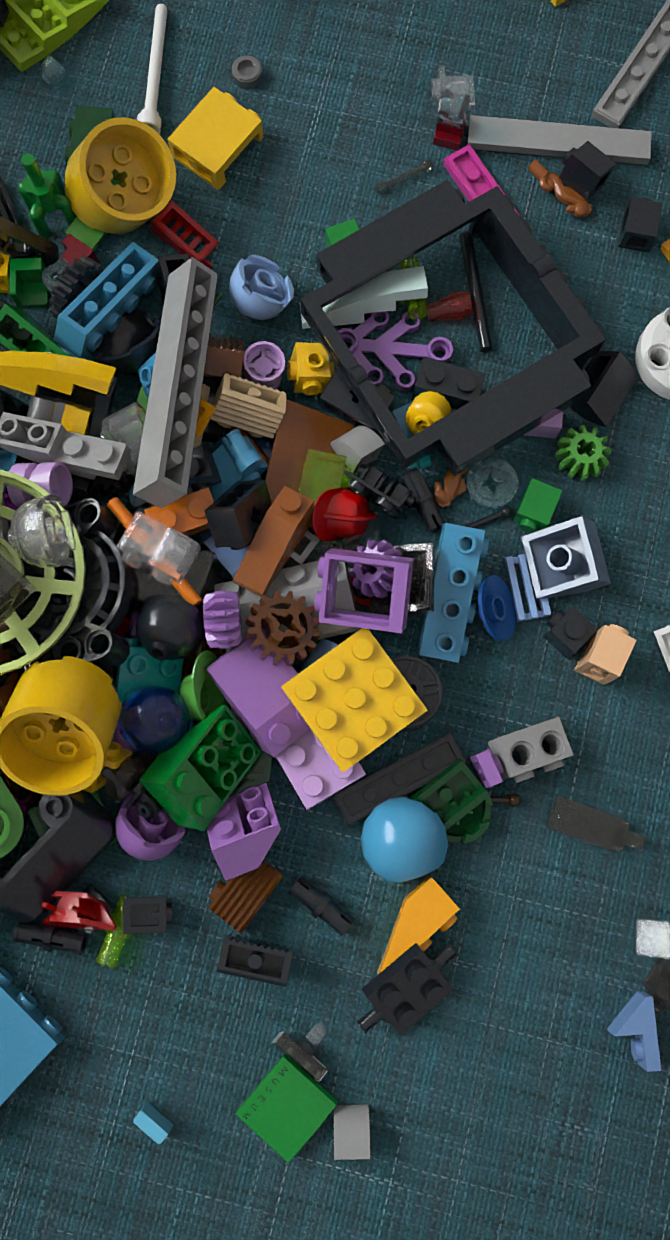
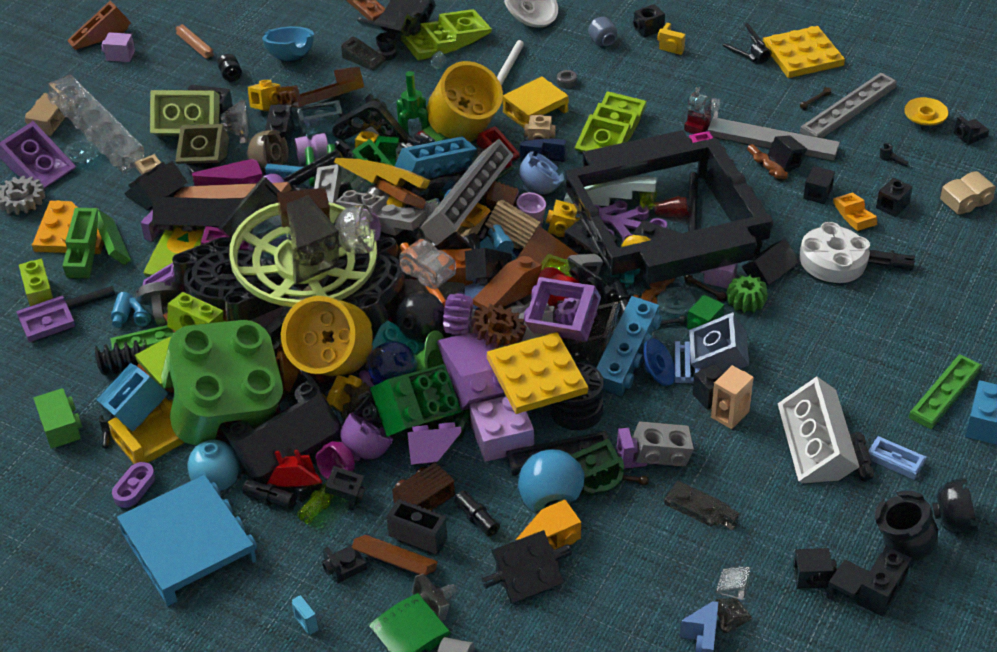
camera: 15 degrees right, 35 degrees down
(84, 416) = (401, 193): none -> dark orange tile
(122, 872) = (333, 455): none -> magenta hair
(175, 1024) = (343, 563): none -> black bracket
(237, 197) = (539, 128): none -> tan brick
(237, 1000) = (394, 555): none -> dark orange tile
(238, 236) = (550, 148): none -> dark blue slope
(332, 160) = (611, 122): none -> lime slope
(545, 456) = (721, 296): none -> dark brown hinge
(613, 27) = (826, 91): none -> dark brown hinge

